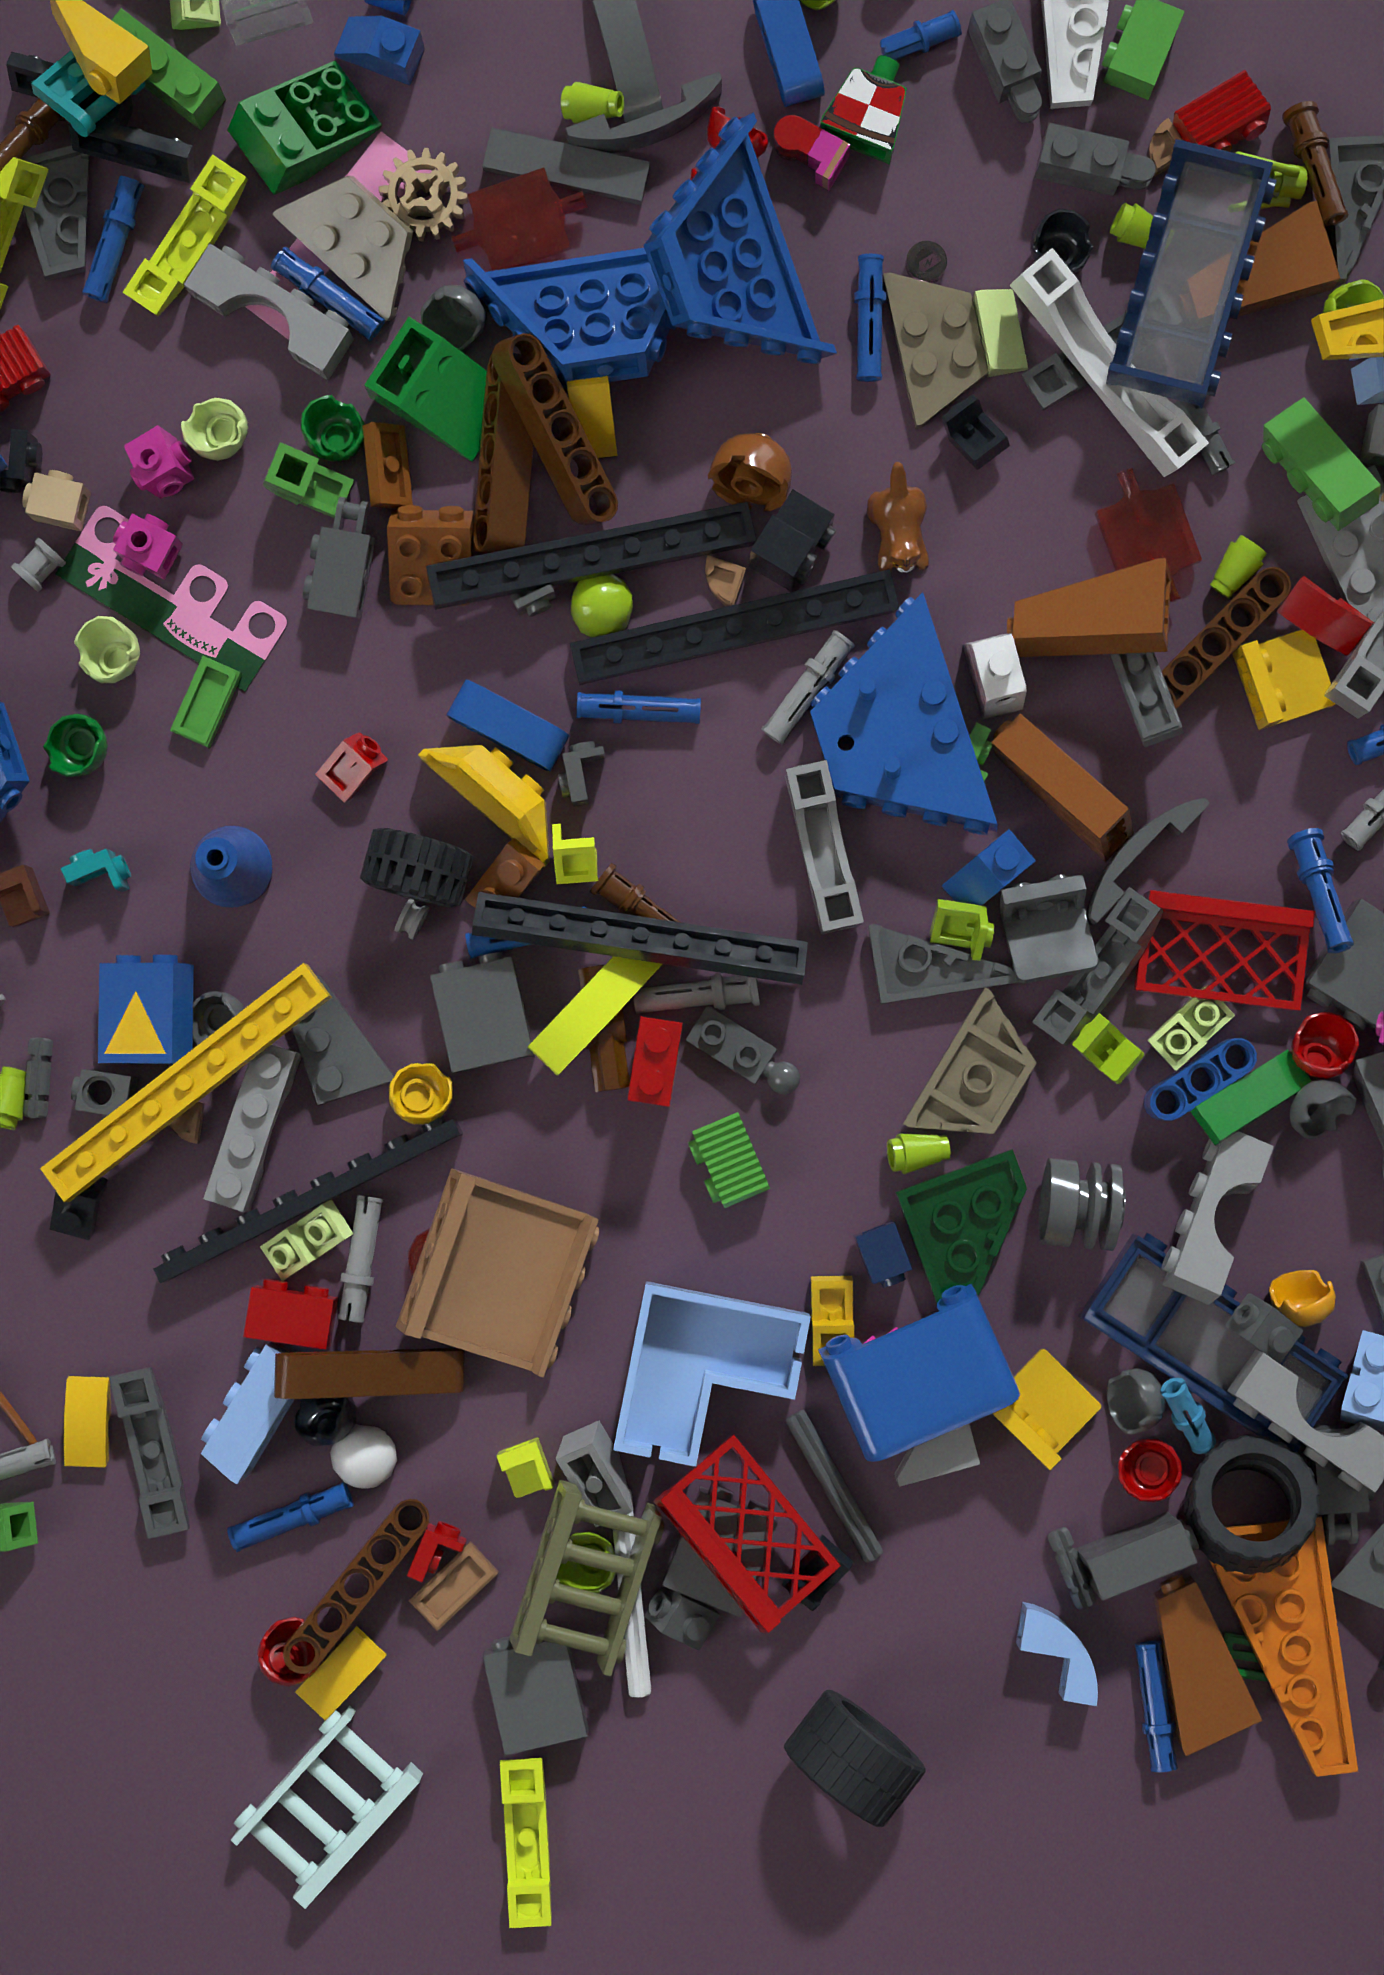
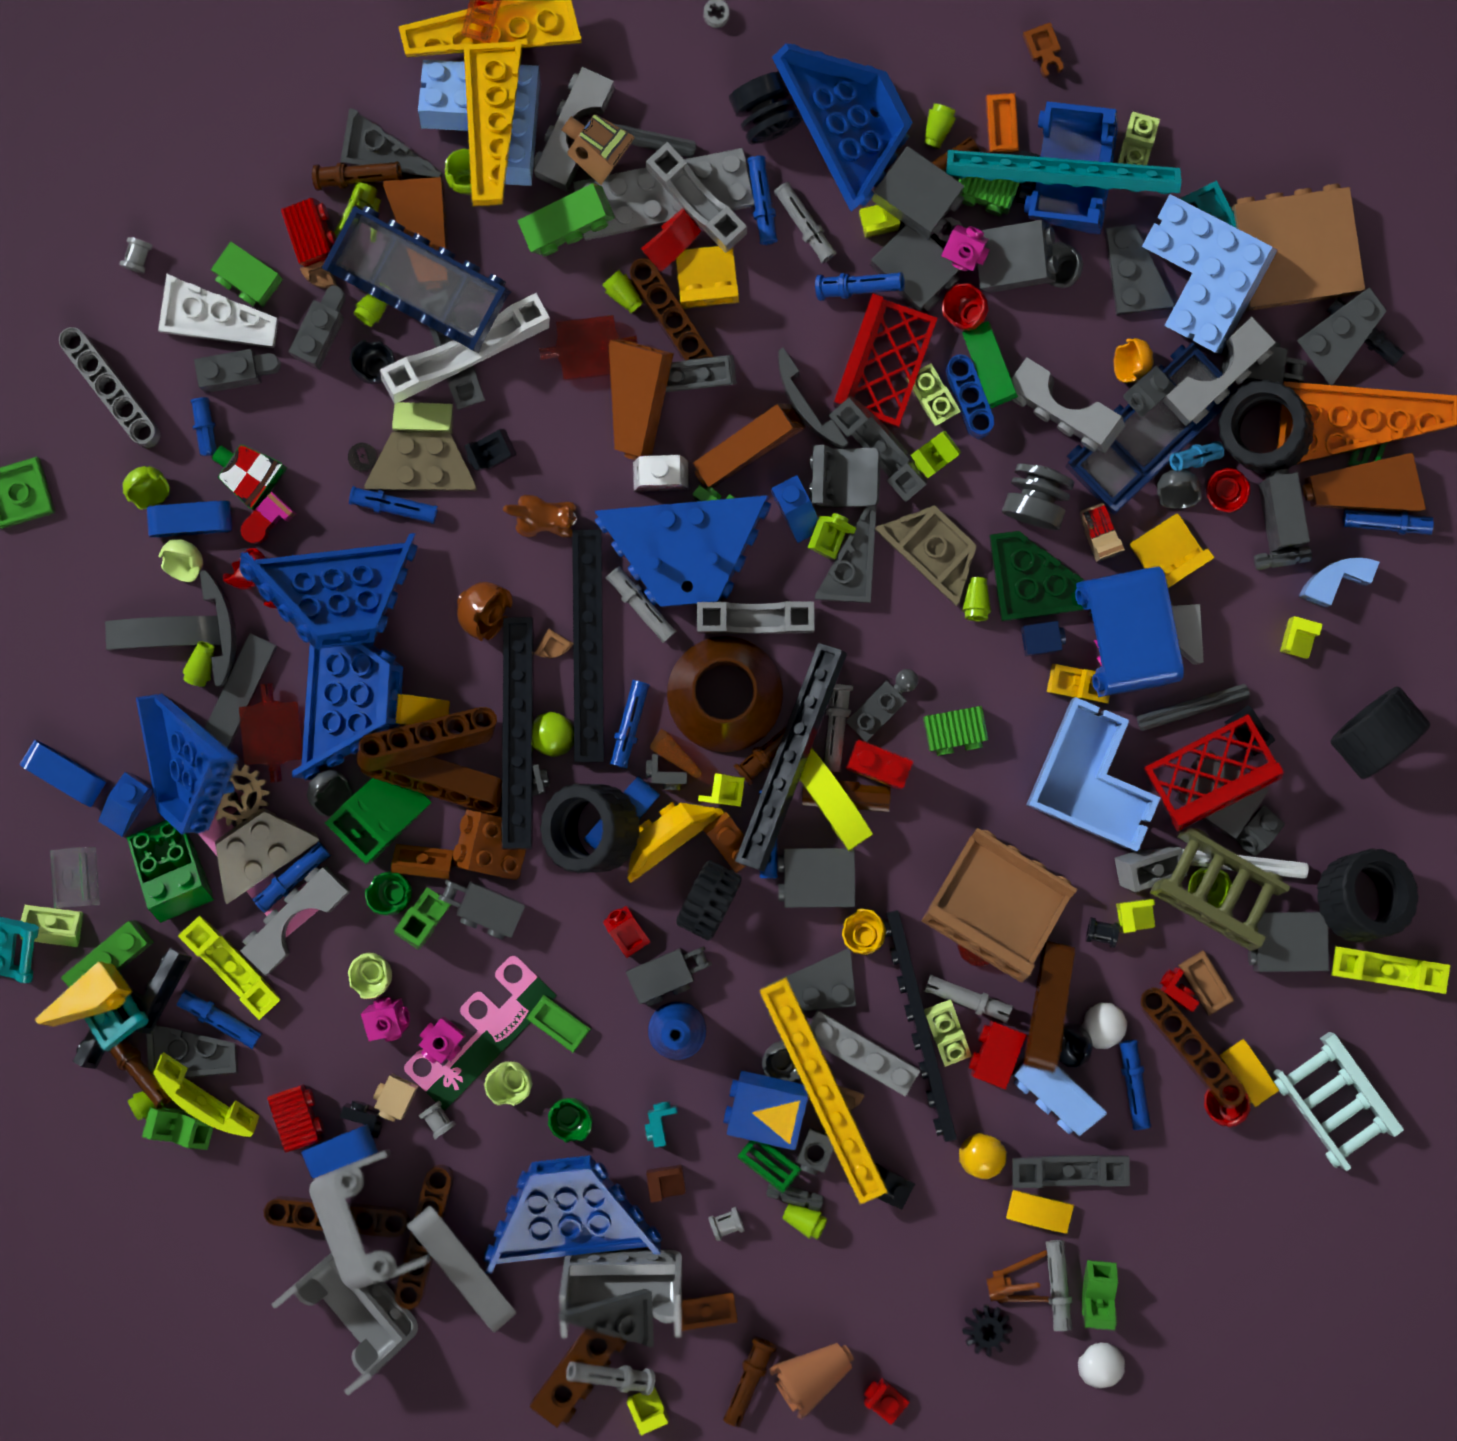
camera: 70 degrees left, 0 degrees up
(58, 1063) = (788, 1179): none -> green tile
(147, 1326) = (982, 1156): none -> yellow hair
(303, 832) = (665, 975): none -> dark grey brick
(411, 919) = (741, 912): light grey bush -> none
(447, 106) = (184, 764): none -> blue piece
(472, 644) = (561, 824): none -> black tyre
(492, 1426) = (1102, 932): none -> black bush
(614, 771) = (668, 749): none -> clear orange slope
(634, 1829) = (1396, 892): none -> black tyre
(703, 885) = (733, 733): none -> reddish brown cone
(729, 46) = (181, 560): none -> yellowish green hair
(790, 540) = (537, 592): black brick -> none
(965, 1616) = (1300, 637): none -> neon yellow panel
(1050, 1304) = (1100, 532): none -> leg
(1214, 453) = (542, 288): dark grey pin -> none
(1319, 1106) = (1006, 320): dark grey hair -> none

